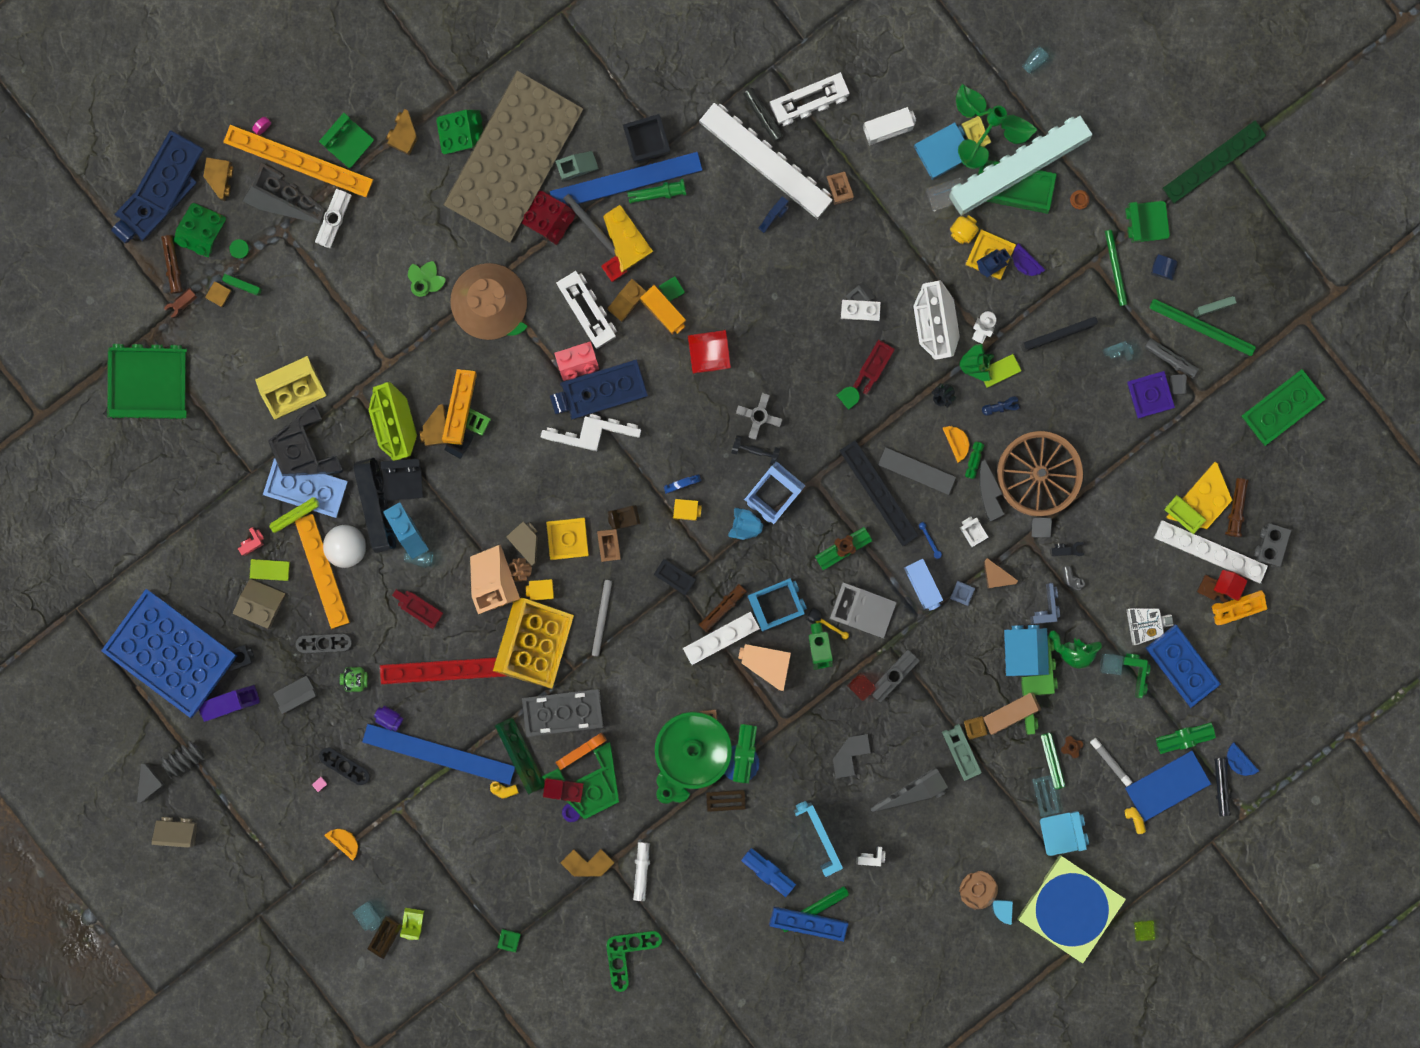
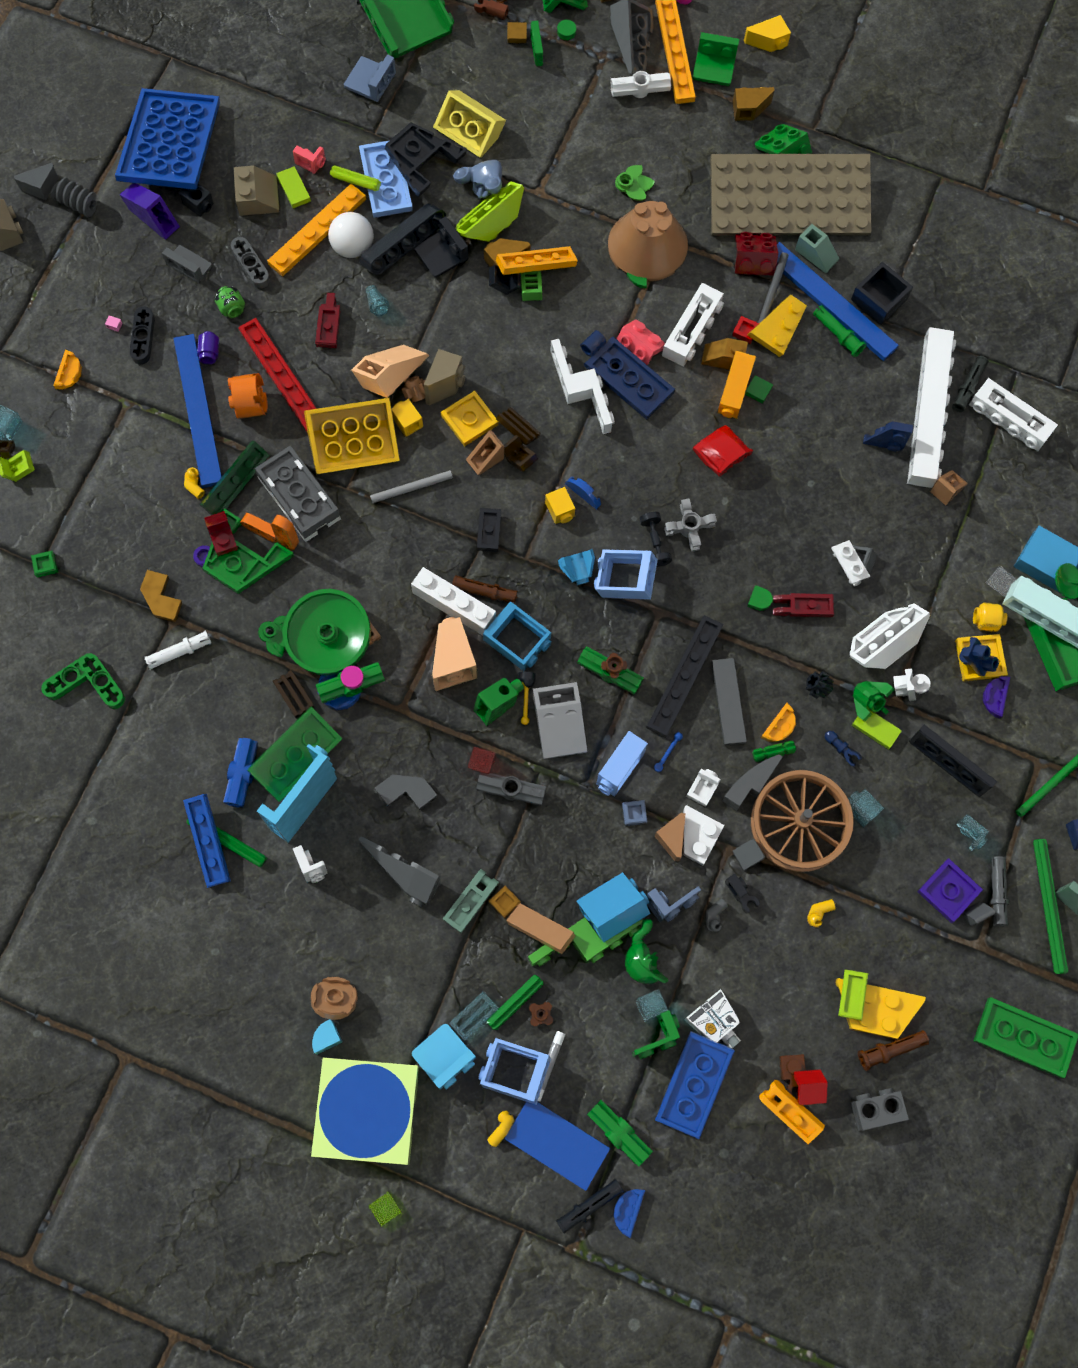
camera: 55 degrees right, 15 degrees down
(196, 448) = (370, 77): none -> sand blue bracket
(345, 76) = (768, 35): none -> yellow slope
(353, 404) = (485, 177): none -> sand blue head
(405, 530) = (393, 266): dark azure brick -> none
(454, 708) = (247, 396): none -> orange brick
(597, 502) = (518, 426): none -> dark brown tile
(745, 751) = (352, 677): none -> dark pink tile
(778, 824) = (289, 757): none -> green plate
(889, 125) = (1040, 493): white window -> none
(1006, 554) = (699, 835): none -> white wing
(1054, 420) = (864, 807): none -> clear light blue brick
(1081, 797) = (538, 1077): none -> light blue window
(1110, 501) = (817, 911): none -> yellow arm
(1210, 552) = (830, 1047): white plate -> none

